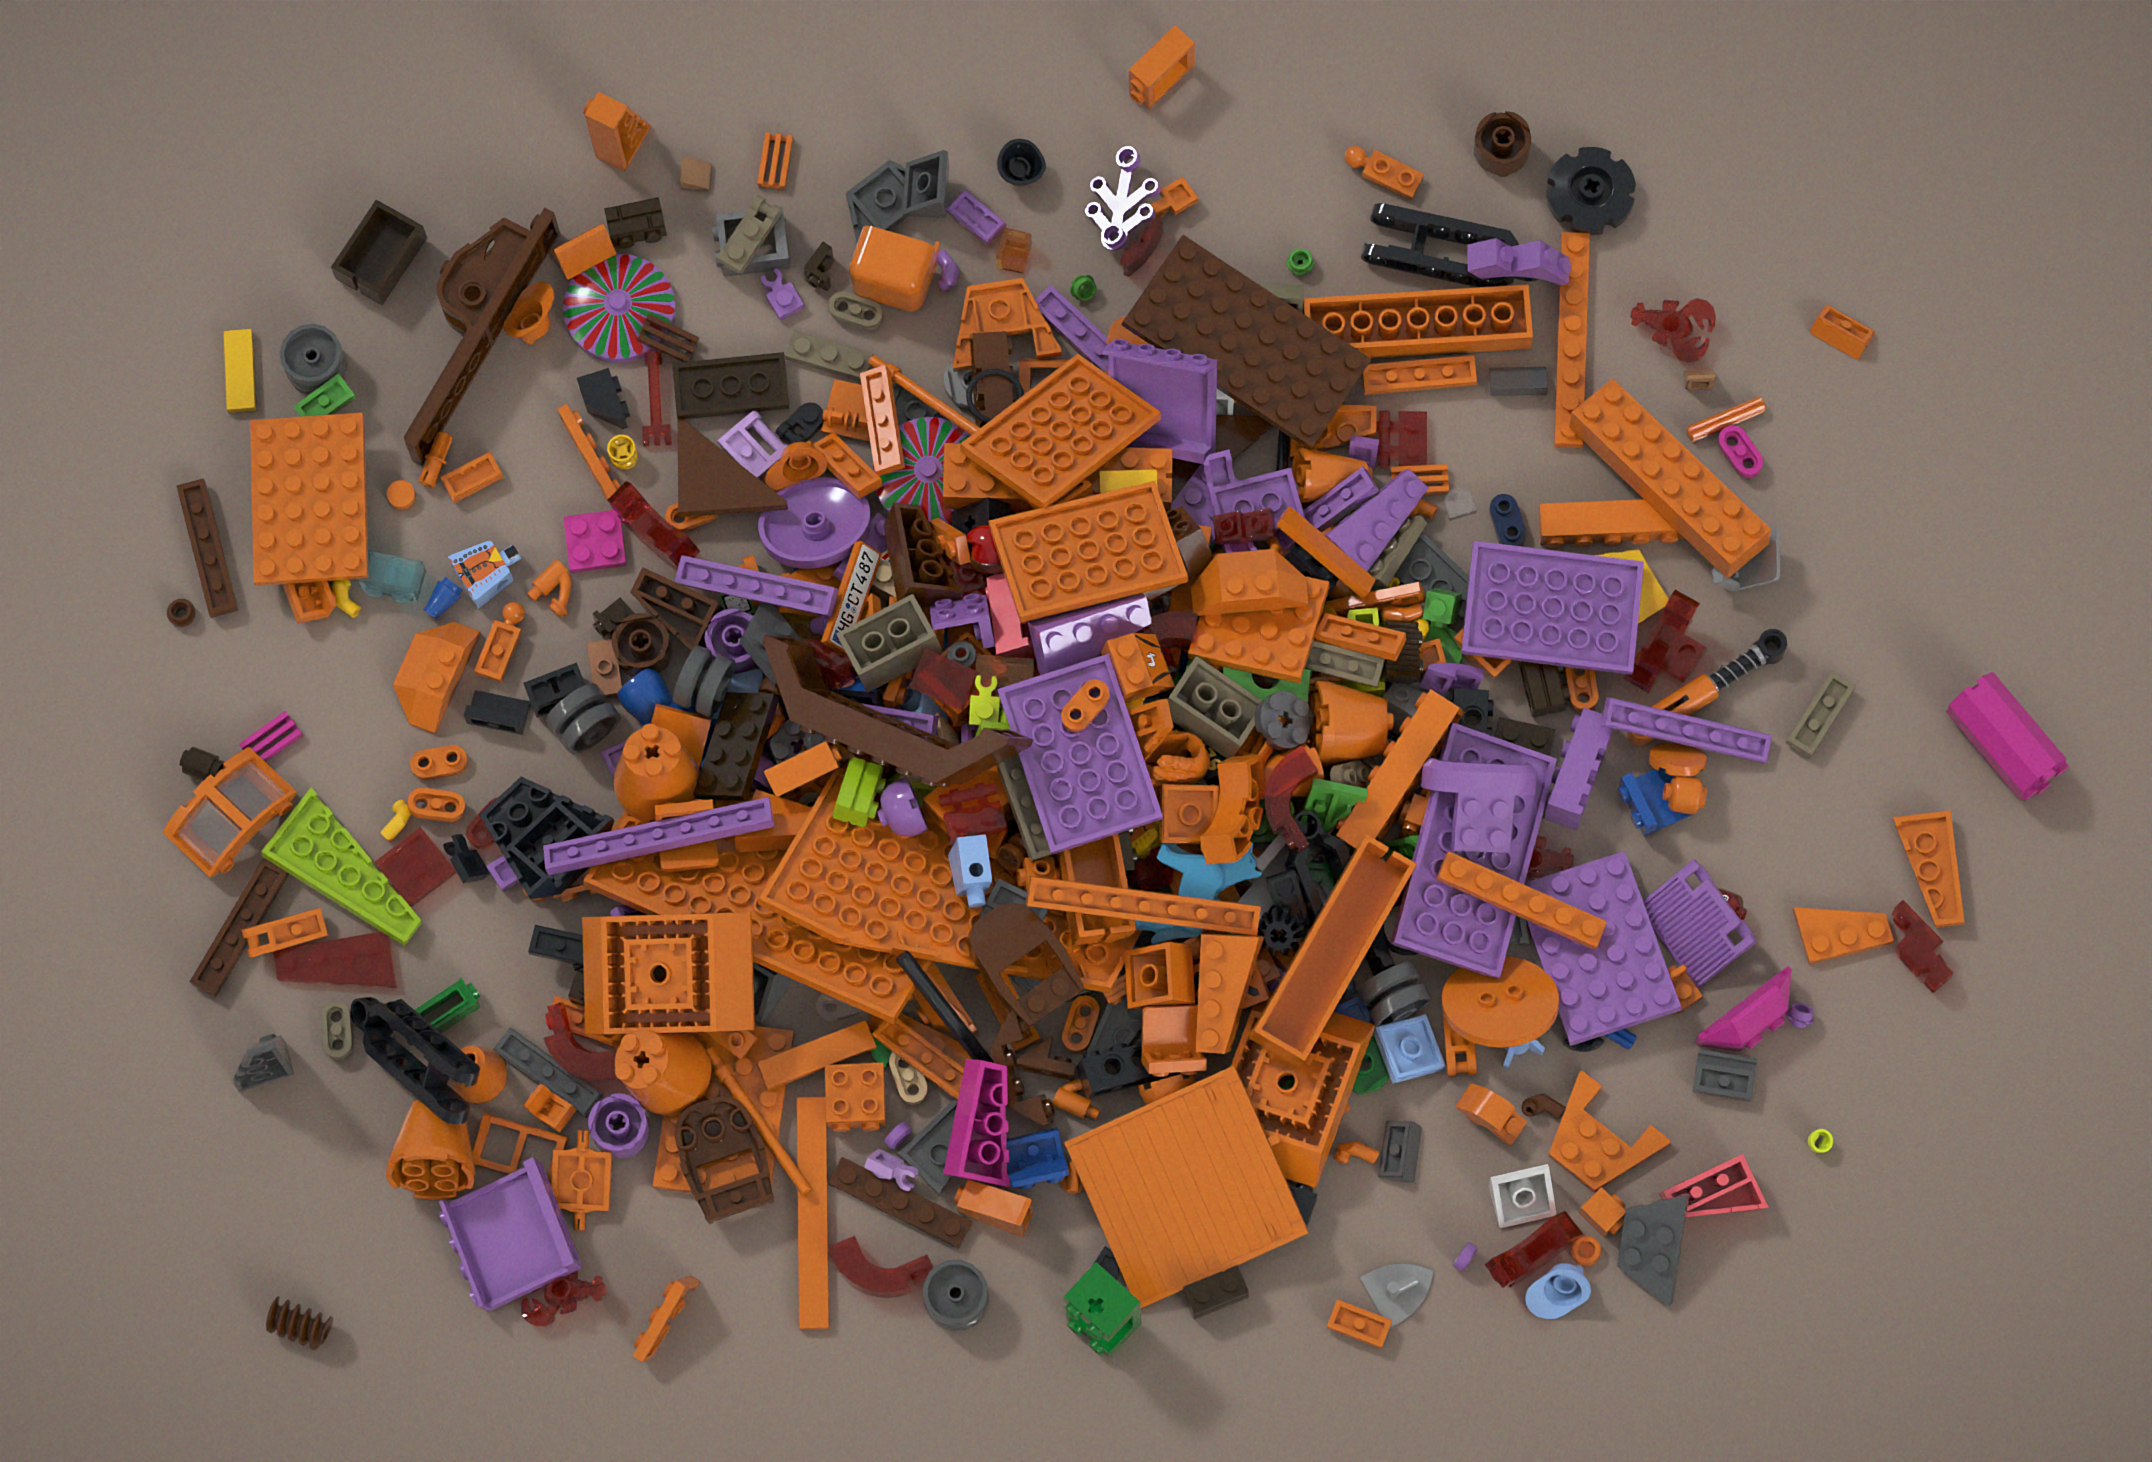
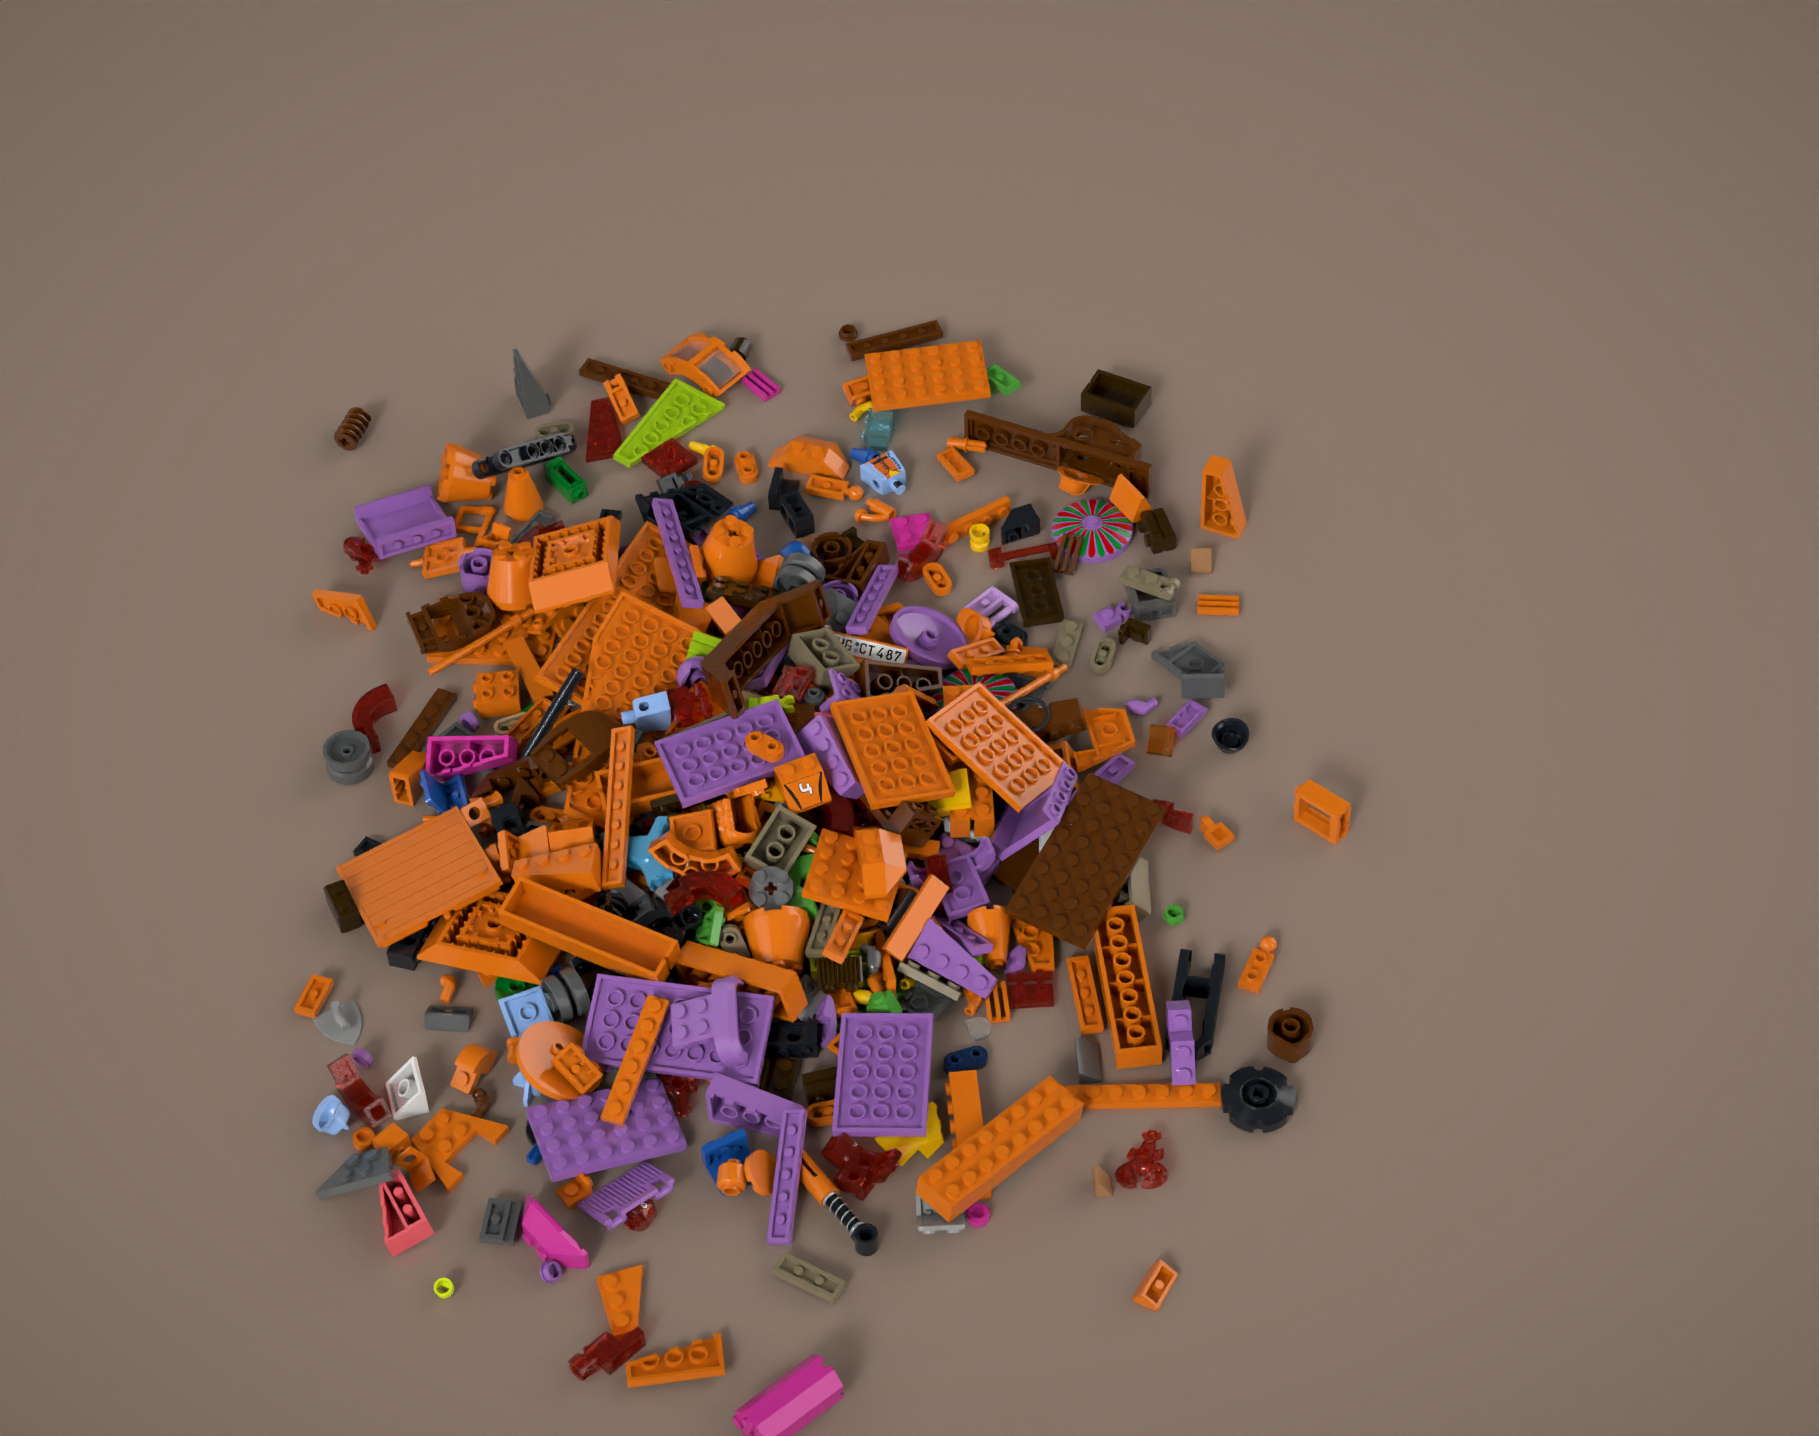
camera: 85 degrees right, 25 degrees down
(239, 370) = (1025, 346): yellow tile -> none
(312, 357) = (1035, 372): dark grey wheel -> none
(401, 495) = (940, 431): orange tile -> none
(535, 768) = (743, 511): none -> blue cone
(583, 718) = (774, 526): dark grey wheel -> none
(715, 482) = (961, 584): reddish brown tile -> none
(813, 1214) = (409, 683): orange tile -> none
(888, 1166) = (446, 715): lavender plate -> none
(893, 268) = (1130, 662): orange piece -> none
(1067, 1109) = (481, 807): none -> orange bracket
(1087, 291) = (1131, 783): bright green plate -> none
(1102, 1310) = (327, 813): green plate -> none
(1122, 202) = (1199, 793): plant -> none
(1374, 609) = (873, 958): none -> dark grey arm
(1523, 975) = (577, 1067): none -> orange bracket
(1649, 1175) = (419, 1169): none -> orange bracket
(1726, 418) = (1066, 1204): orange axle -> none
(1741, 452) = (1035, 1213): dark pink plate -> none

